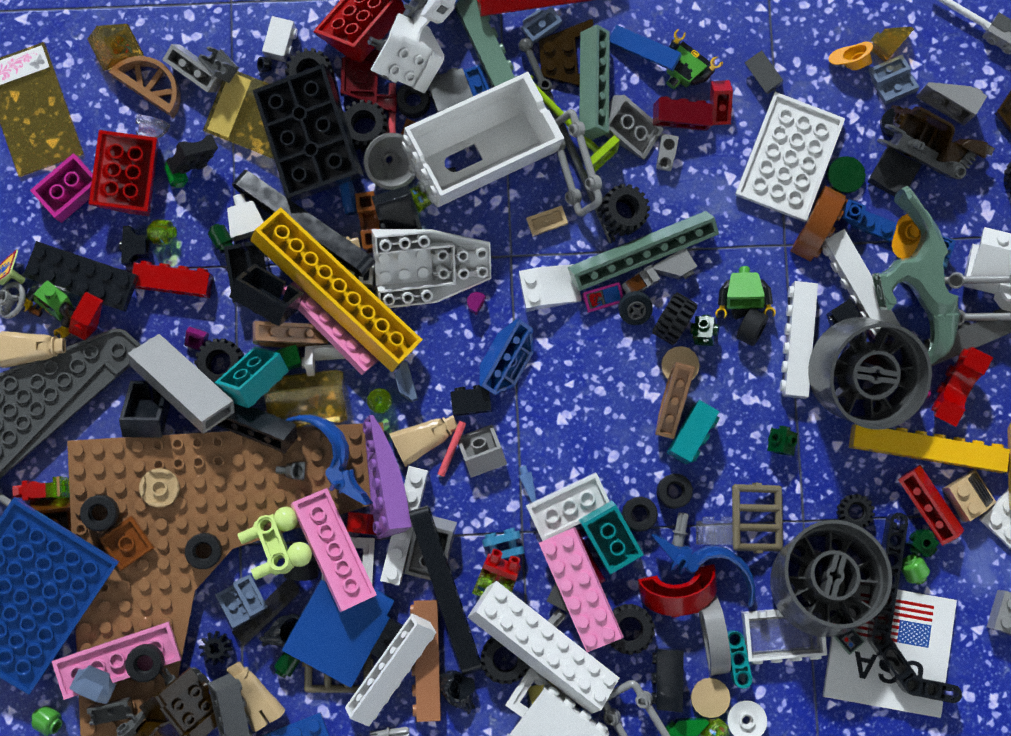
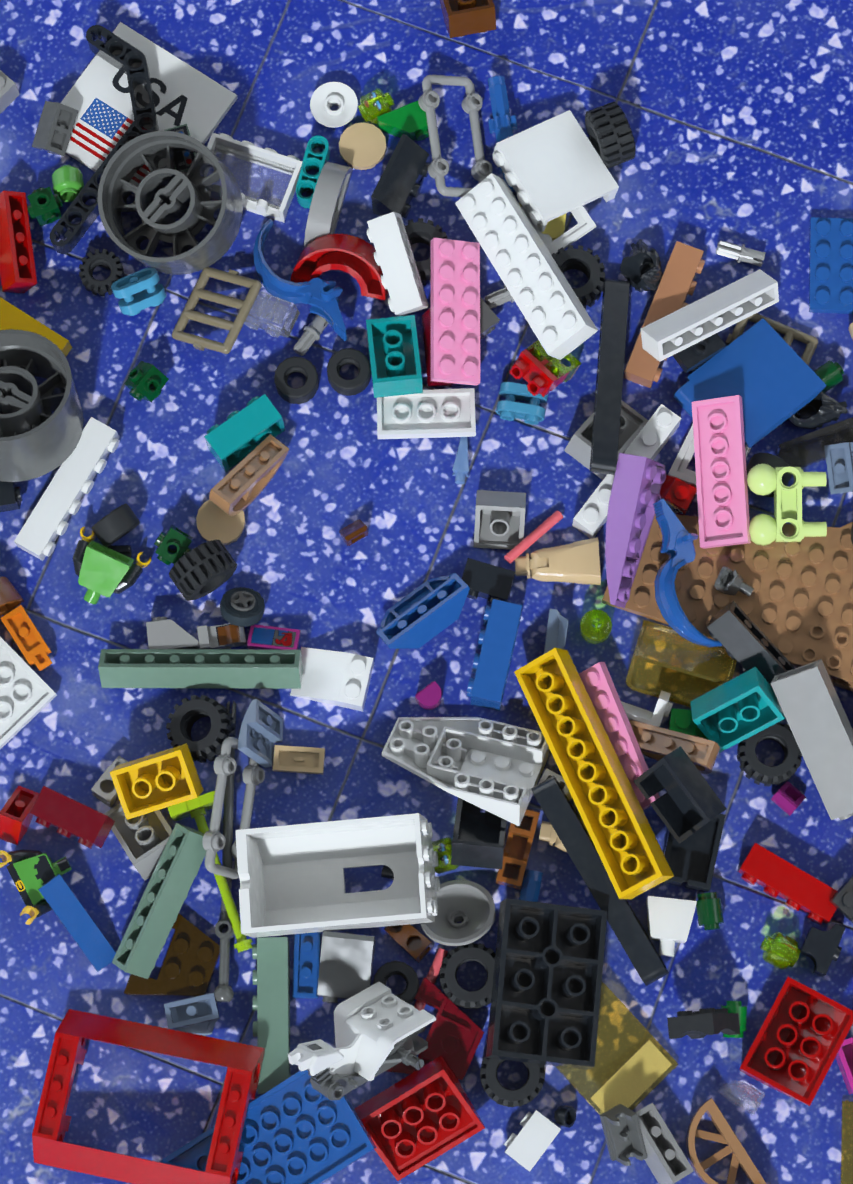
camera: 150 degrees left, 5 degrees down
(440, 348) = (496, 654): none -> blue brick
(581, 222) = (259, 733): none -> sand blue slope
(582, 398) = (354, 532): none -> slope
(635, 156) = (156, 781): none -> yellow brick
(639, 605) = (397, 264): none -> white brick
(774, 224) = (27, 637): none -> orange hinge
(821, 506) = (139, 291): none -> dark azure brick
(946, 607) = (55, 128): none -> dark grey hinge

